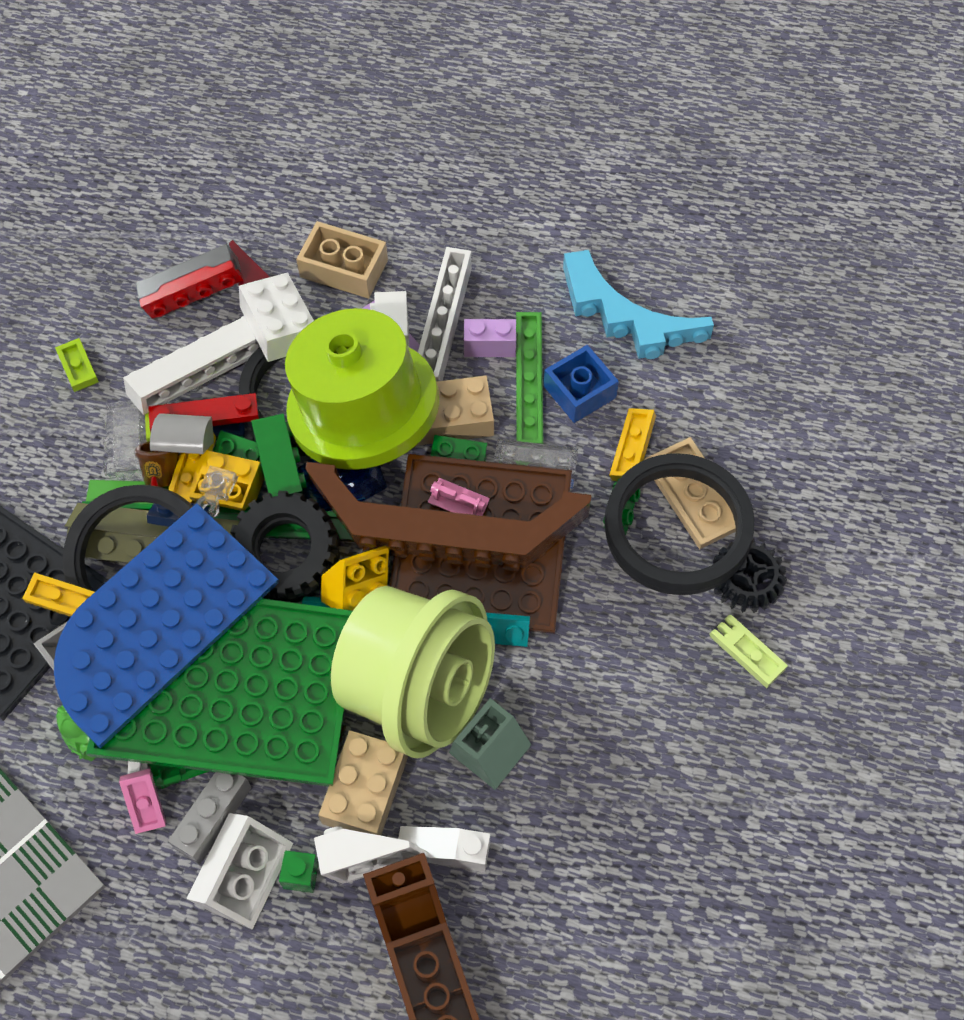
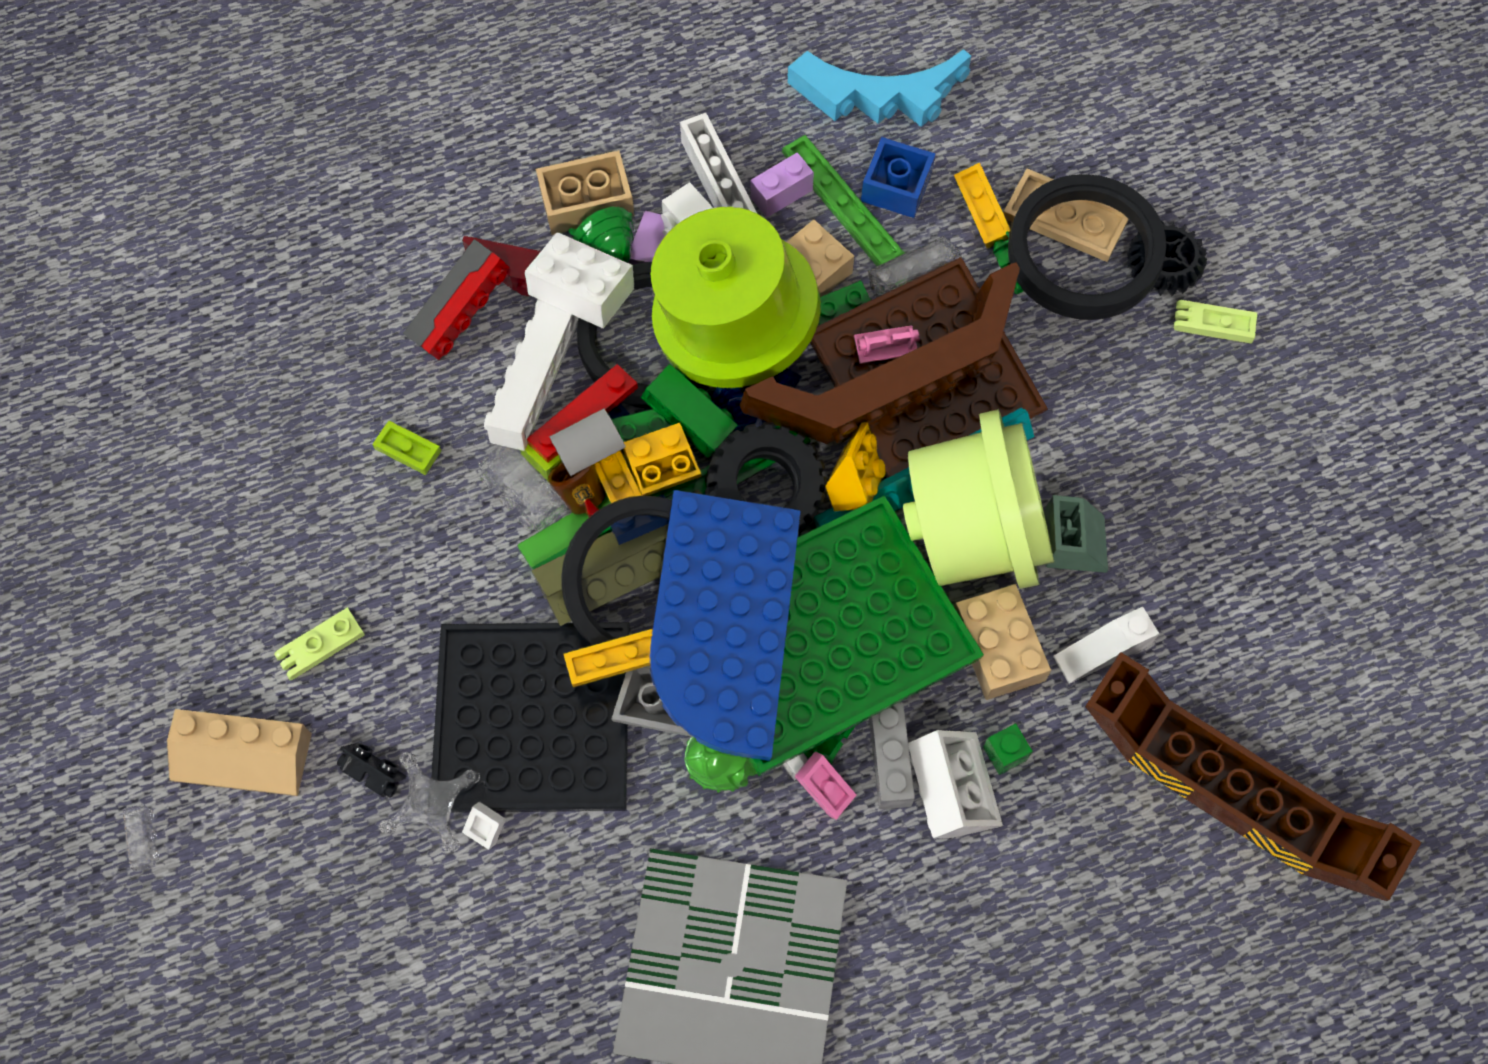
camera: 35 degrees left, 5 degrees up
(216, 486) = (664, 468): clear plate -> none
(326, 294) = (607, 231): none -> green head
(349, 854) = (1051, 695): white slope -> none

